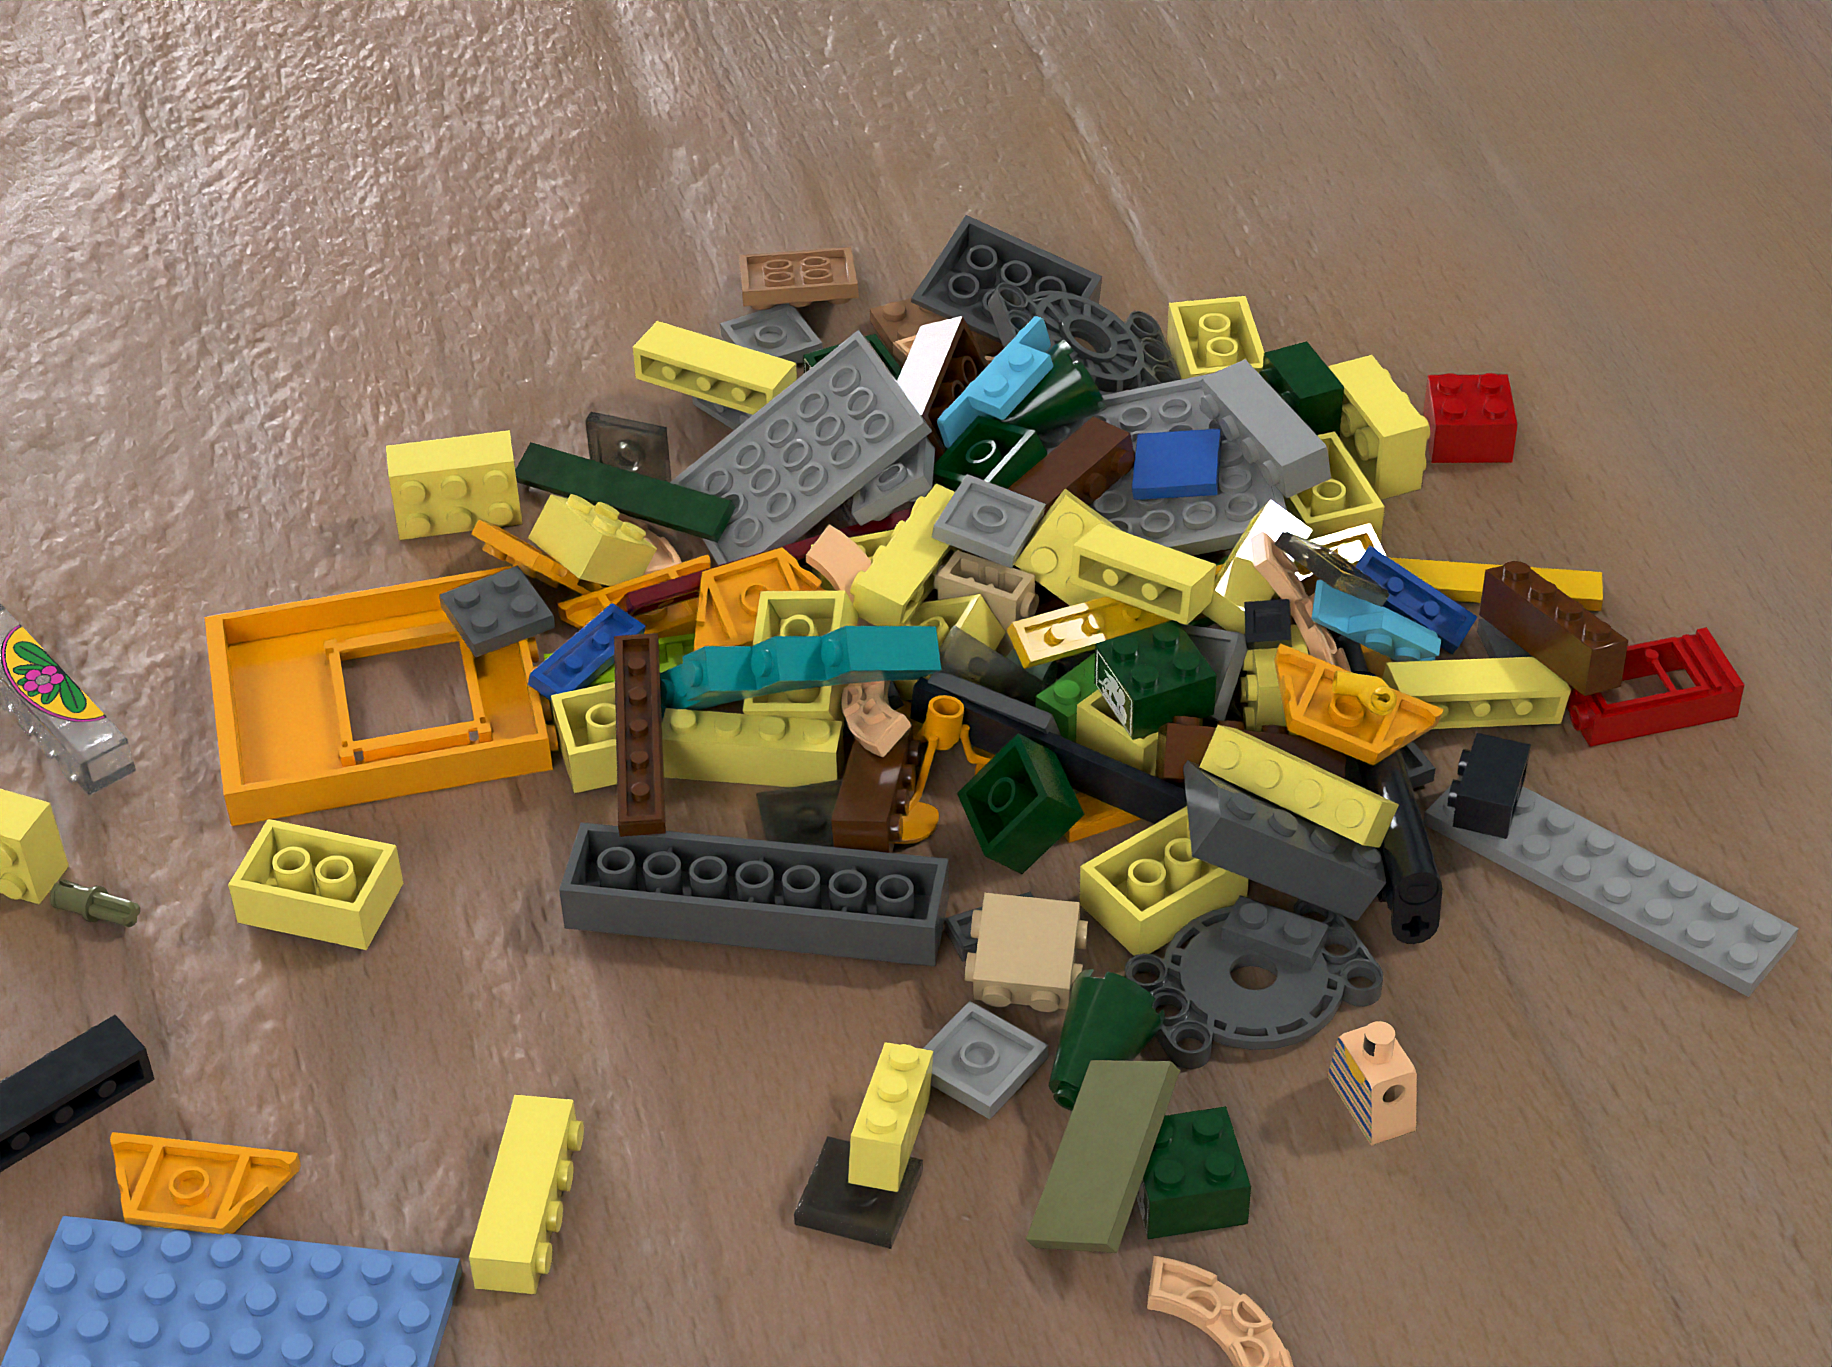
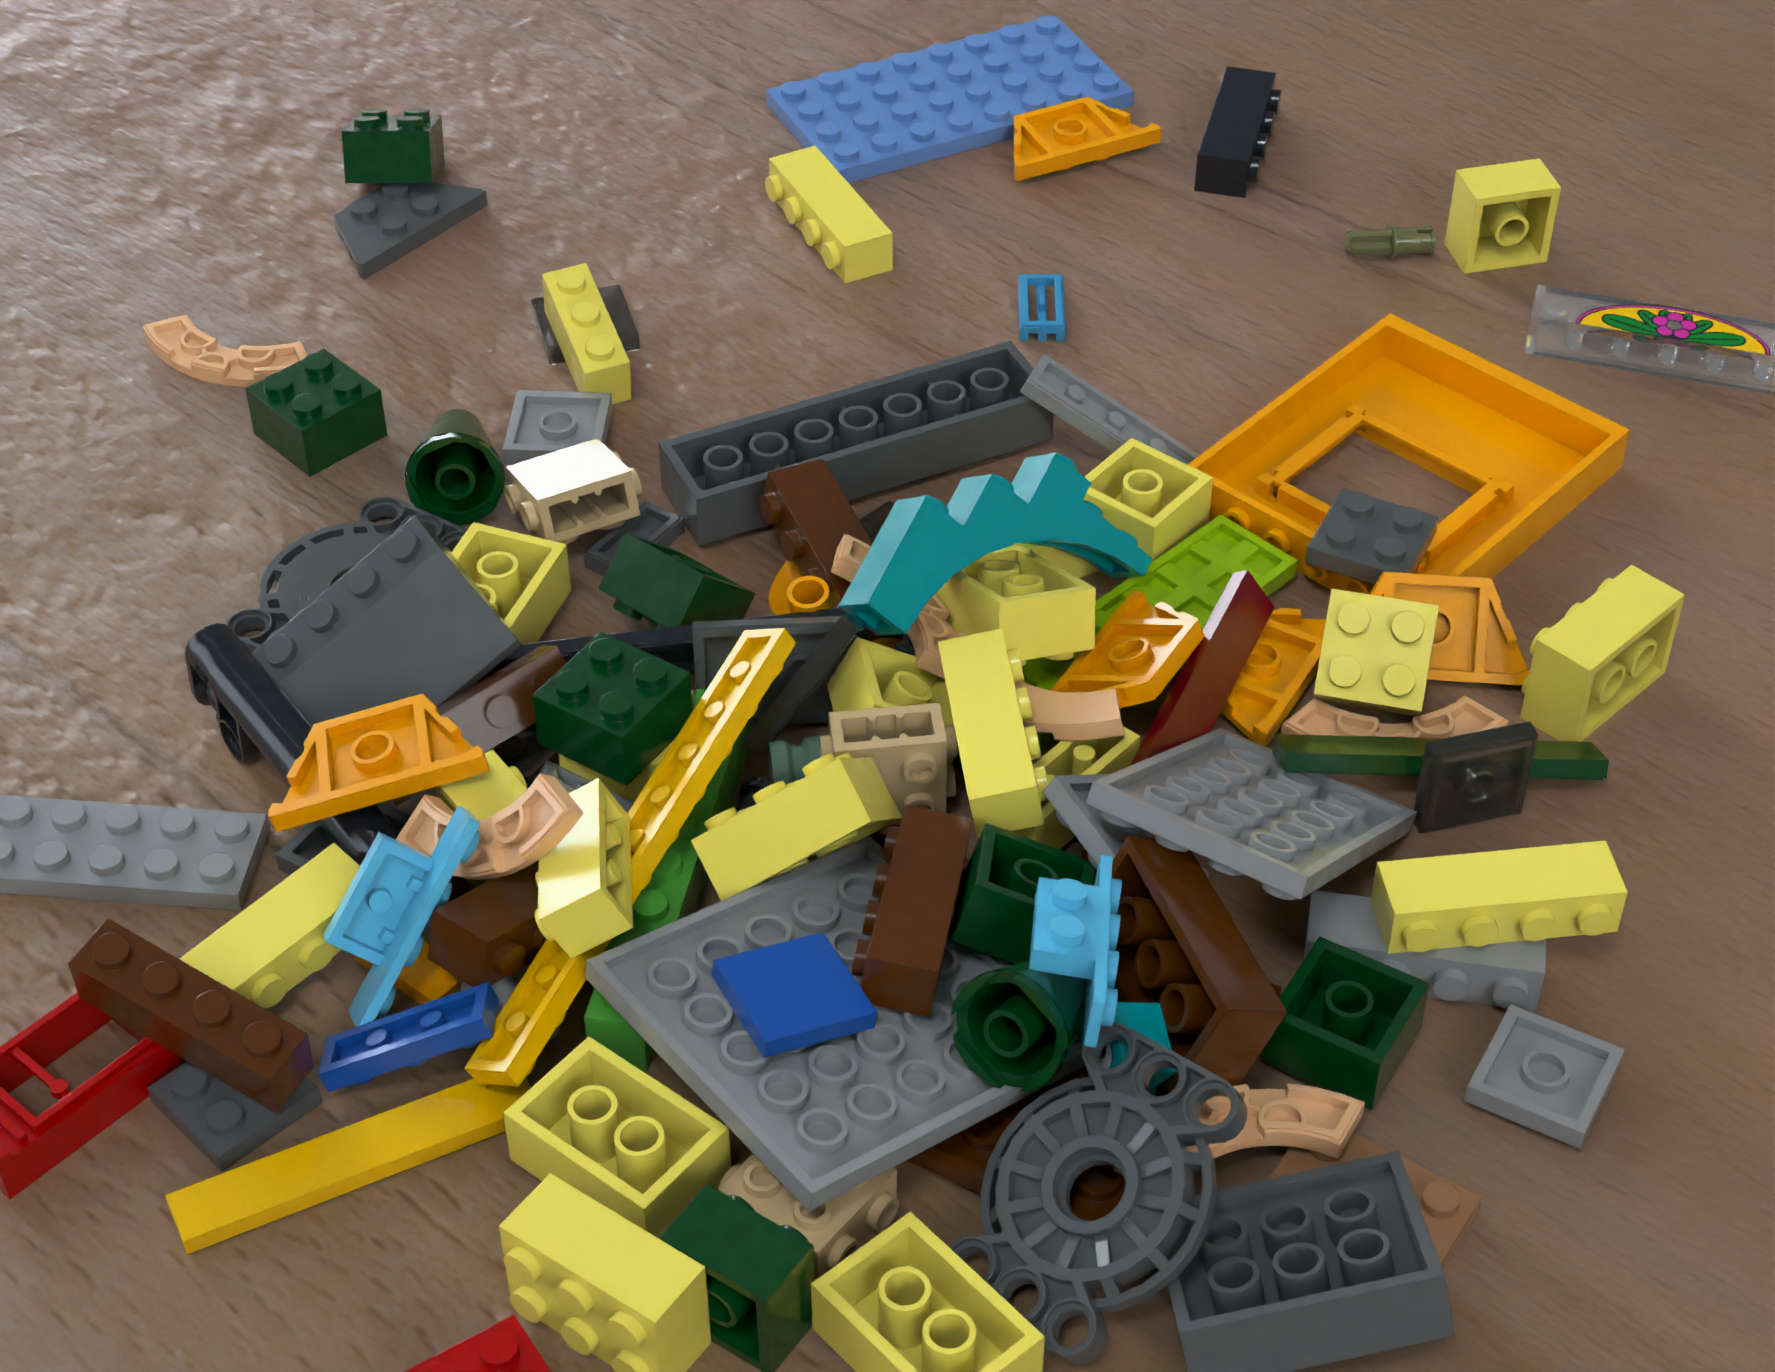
camera: 145 degrees right, 0 degrees up
(316, 884) = (1229, 300): light yellow brick -> none
(454, 1001) = (1041, 326): none -> dark azure tile
(556, 798) = (1095, 411): none -> light grey tile
(585, 654) = (1236, 535): blue plate -> none
(639, 735) = (1113, 488): reddish brown tile -> none
(798, 277) = (1616, 1171): medium nougat plate -> none
(988, 521) = (928, 756): light grey plate -> none
(1103, 1156) = (385, 366): olive tile -> none
(1143, 573) = (687, 741): light yellow brick -> none
(1265, 429) = (698, 1047): light grey brick -> none
(1267, 624) = (508, 784): black plate -> none
(1299, 786) = (375, 640): light yellow brick -> none
(1332, 568) = (473, 855): clear smoke tile -> none
(1368, 689) = (357, 758): yellow arm -> none
(1371, 1067) = (187, 527): light nougat torso -> none
(1489, 785) = (191, 820): black brick -> none

